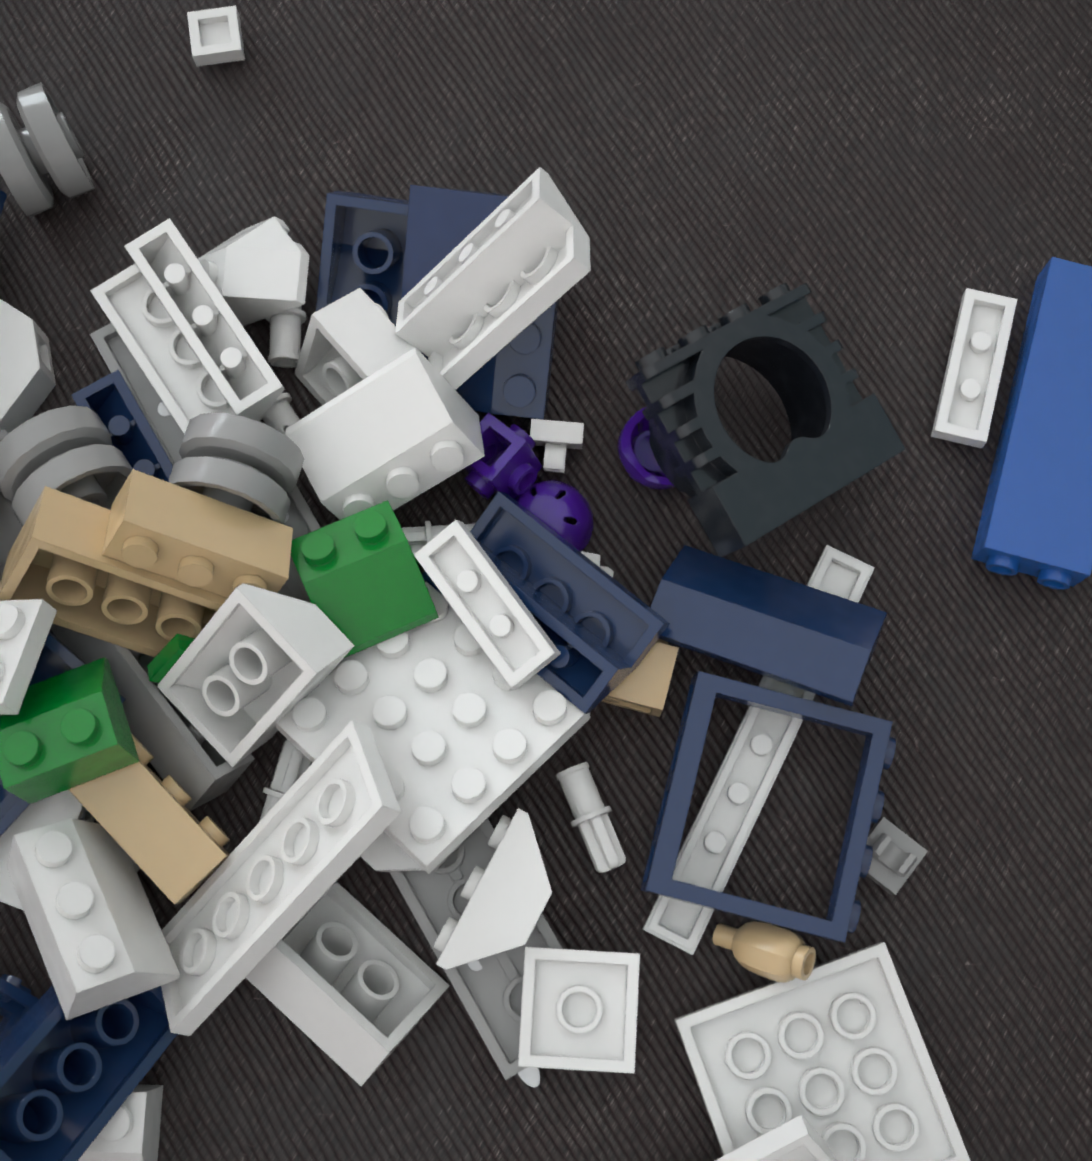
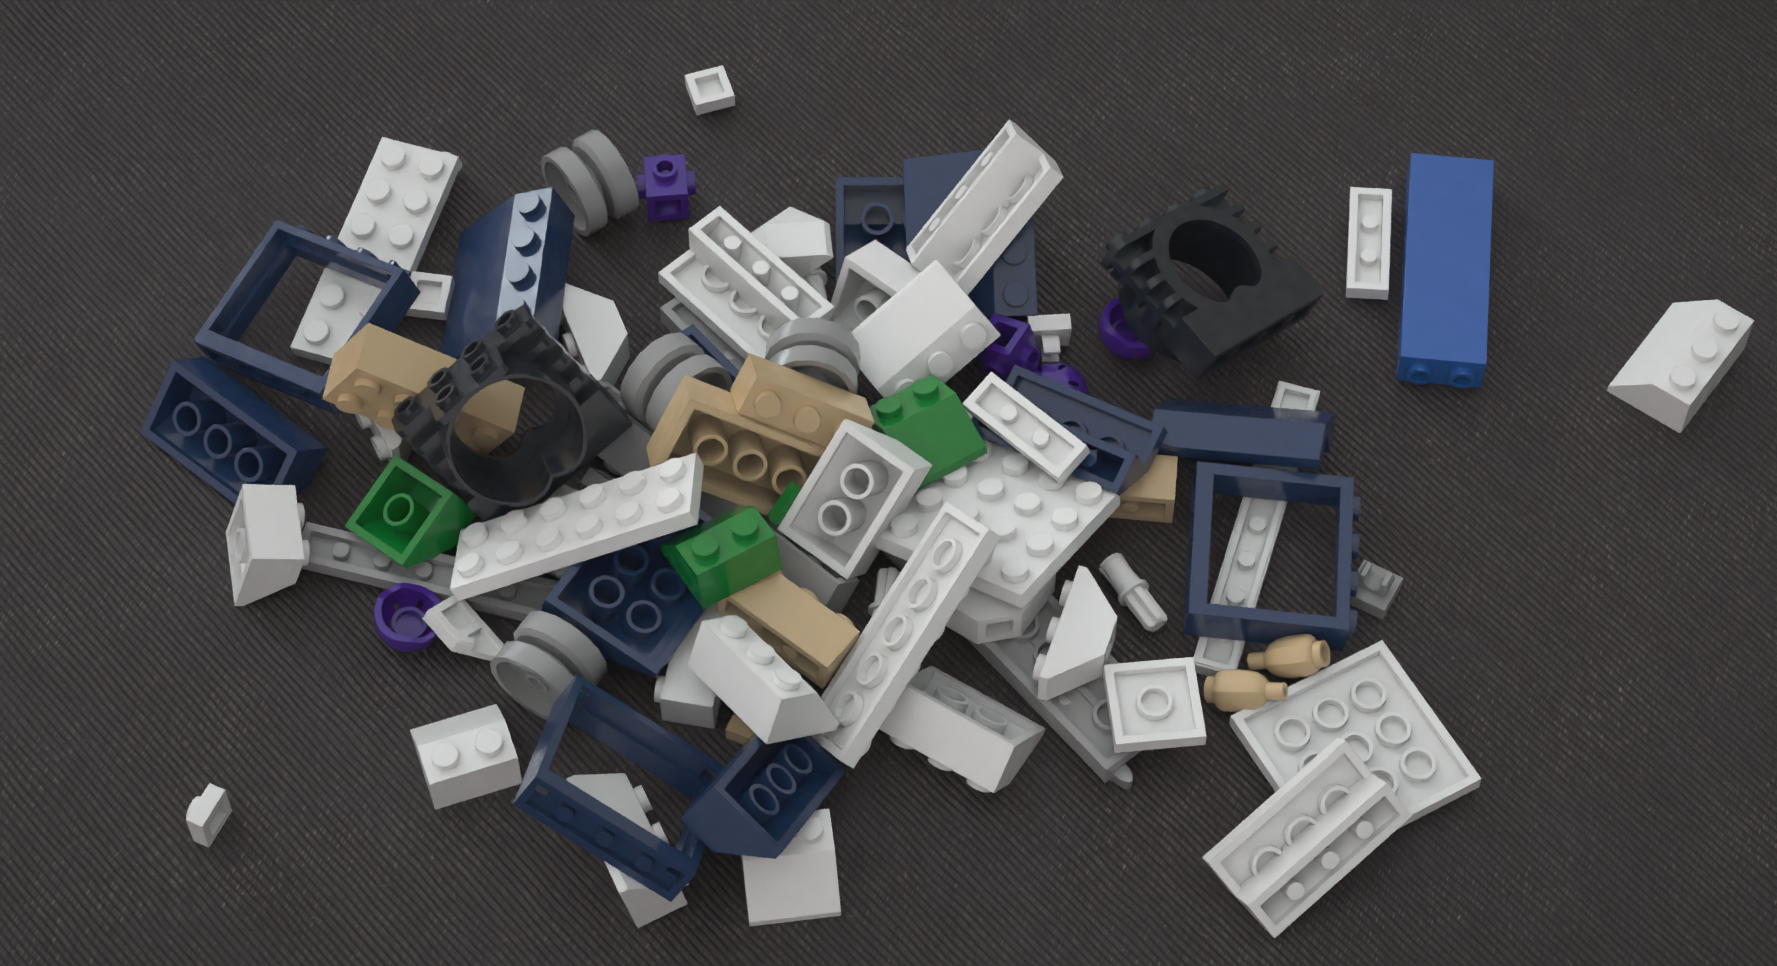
camera: 10 degrees left, 20 degrees down
(132, 165) = (666, 187): none -> dark purple brick
(697, 985) = (1242, 689): none -> tan plant

